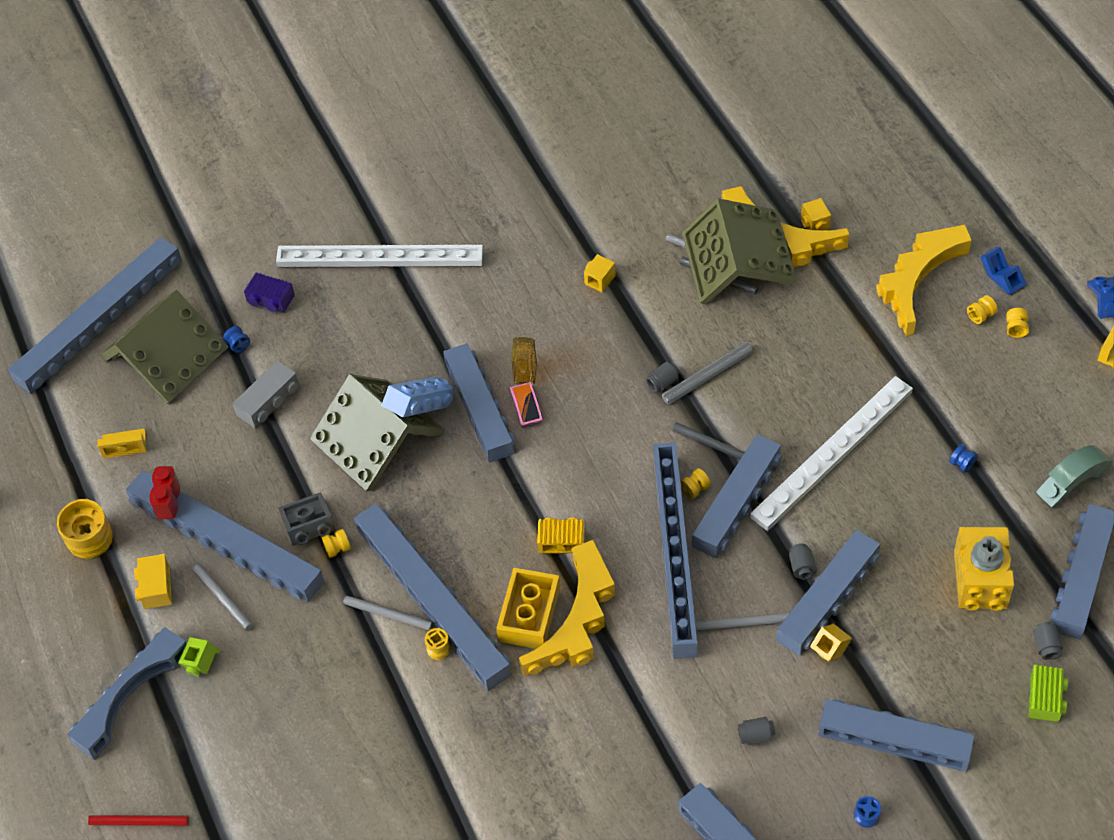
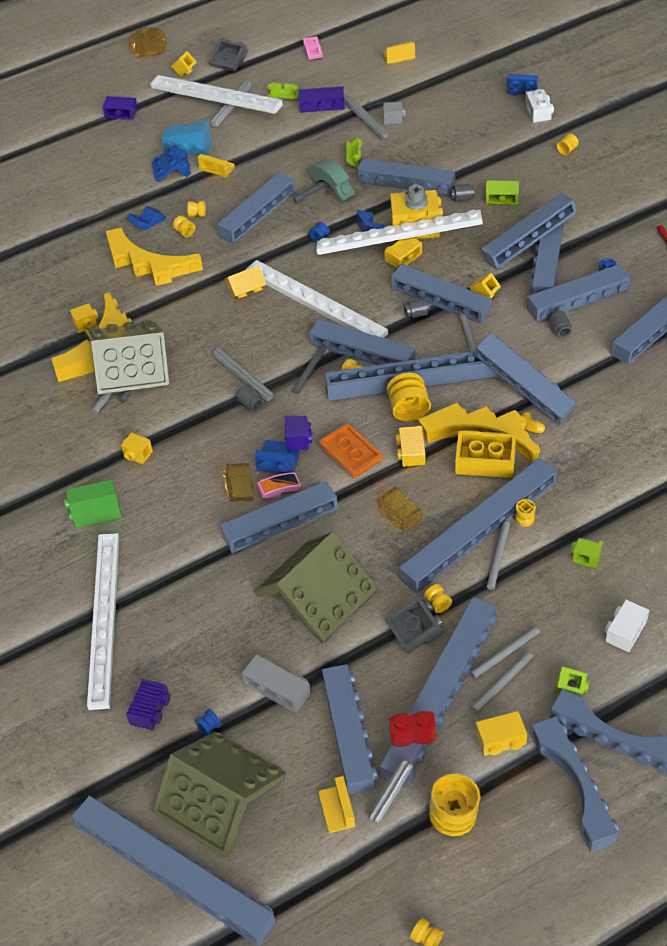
camera: 95 degrees left, 5 degrees down
(38, 655) = (553, 743): none -> sand blue arch
(116, 478) = (390, 791): none -> light grey axle
(202, 451) = (348, 730): none -> sand blue brick
(253, 722) = (626, 625): none -> white brick
(258, 604) = (505, 652): none -> light grey bar
(366, 701) = (587, 552): none -> lime brick
(418, 396) = (290, 540): light blue brick -> none
(466, 516) = (399, 509): none -> clear yellow brick
(517, 235) = (92, 503): none -> bright green brick
(566, 404) = (276, 458): none -> blue bracket
(566, 475) = (350, 450): none -> orange plate
(579, 671) = (533, 425): none -> yellow arm
(594, 418) = (297, 433): none -> dark purple brick
(631, 532) = (408, 397): none -> yellow wheel
(636, 659) = (525, 378): none -> sand blue brick
(816, 765) = (578, 292): none -> sand blue brick
(862, 371) = (245, 281): none -> yellow brick
(916, 554) = (403, 252): none -> yellow brick
(936, 707) = (529, 230): none -> sand blue brick
(945, 549) = (399, 232): none -> white plate
(977, 513) = (365, 221): none -> blue slope
(1019, 388) = (255, 208): none -> sand blue brick
(1061, 455) = (311, 190): none -> dark grey bar

